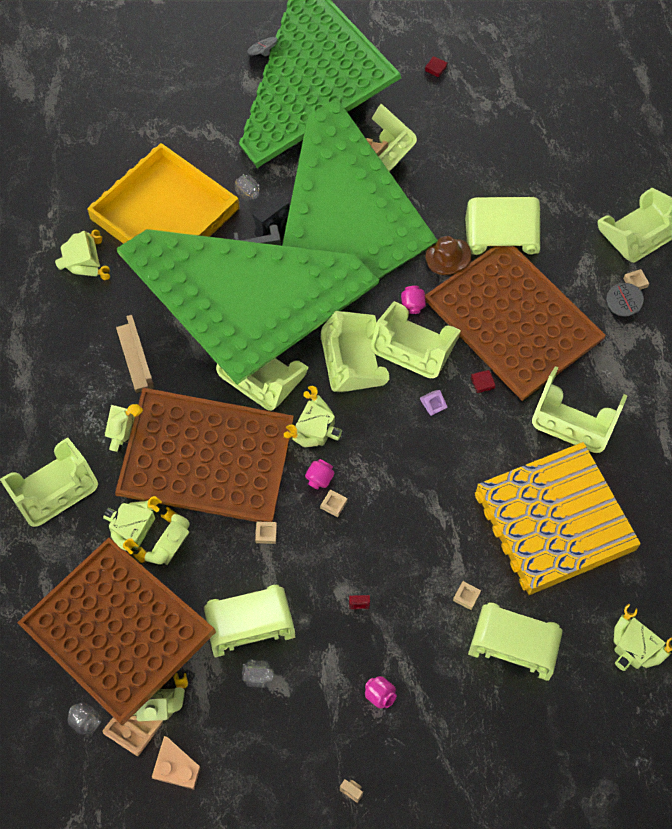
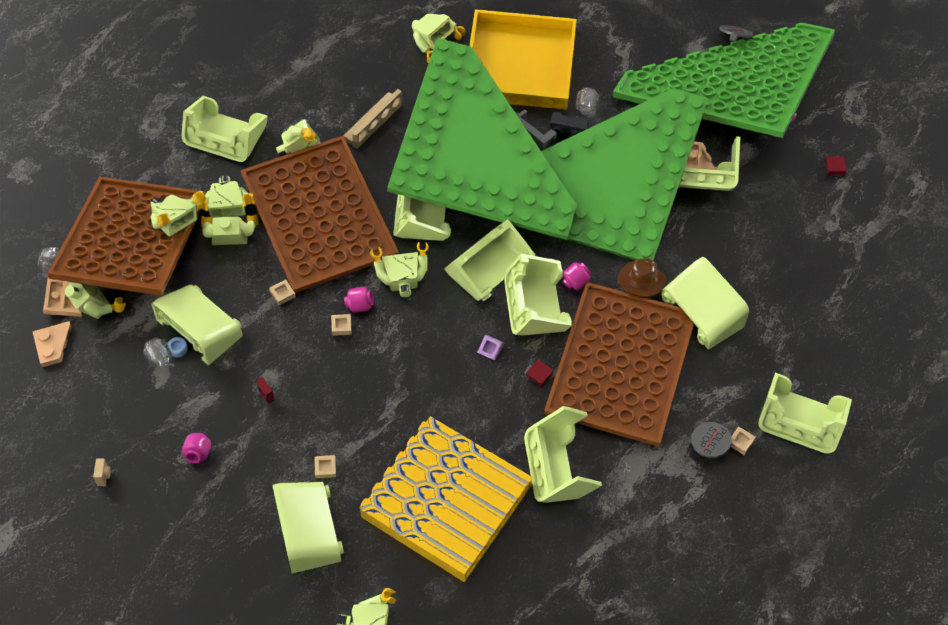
camera: 55 degrees right, 5 degrees down
(125, 573) = (175, 213): none -> yellowish green torso
(259, 652) = (178, 346): none -> light blue tile

